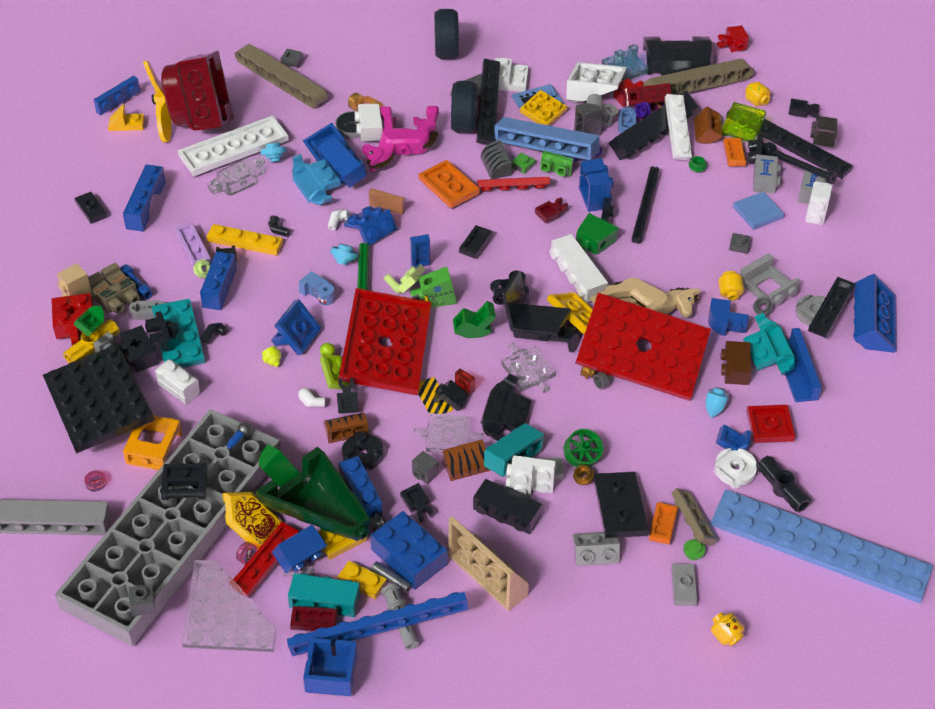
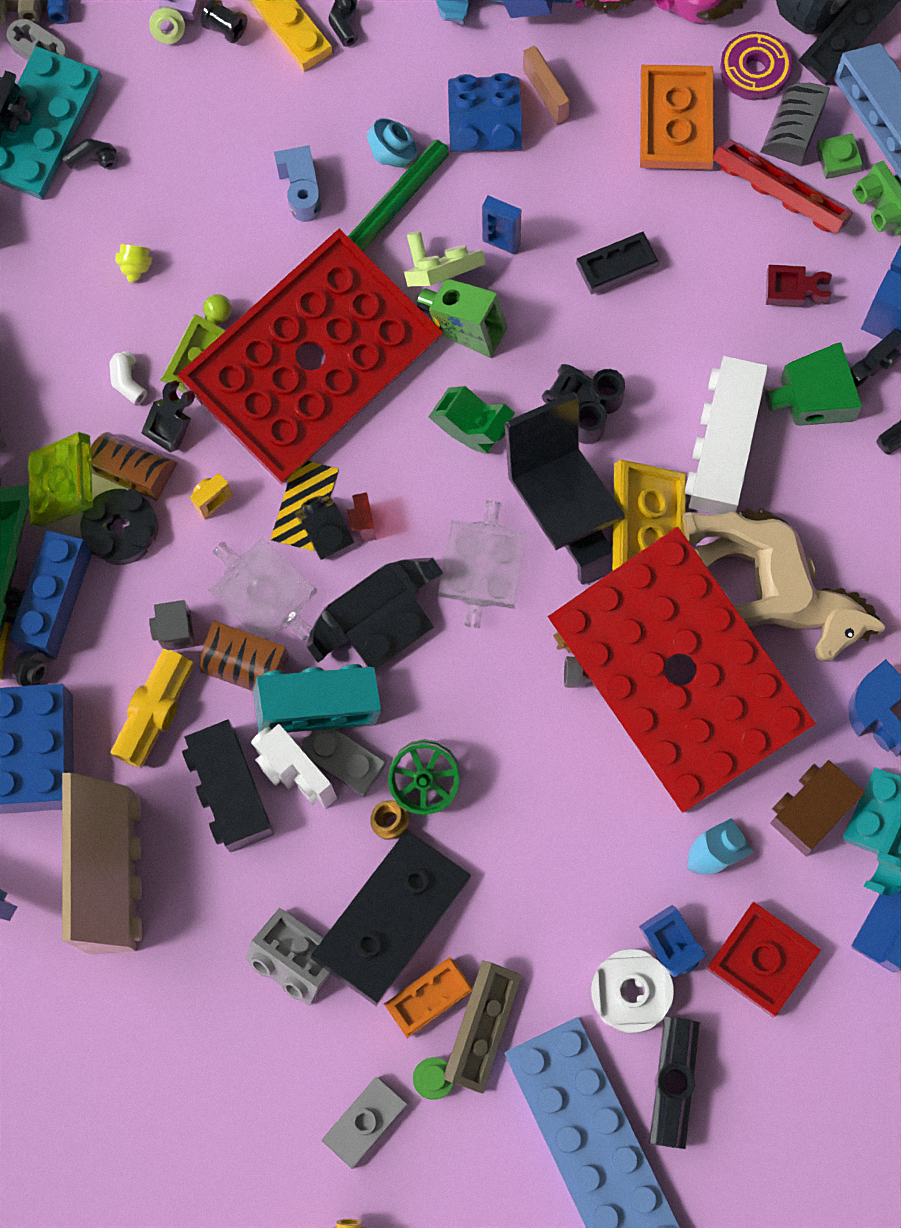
camera: 45 degrees right, 25 degrees up
(218, 281) = (168, 64): blue brick -> none
(296, 328) = (201, 237): blue bracket -> none
(326, 438) = (60, 479): none -> clear neon green plate
(337, 216) = (447, 61): white arm -> none
(392, 413) = (210, 495): none -> yellow plate
(416, 499) = (116, 668): black plate -> none
(445, 499) = (152, 708): none -> yellow piece
(461, 146) = (761, 48): none -> magenta tile

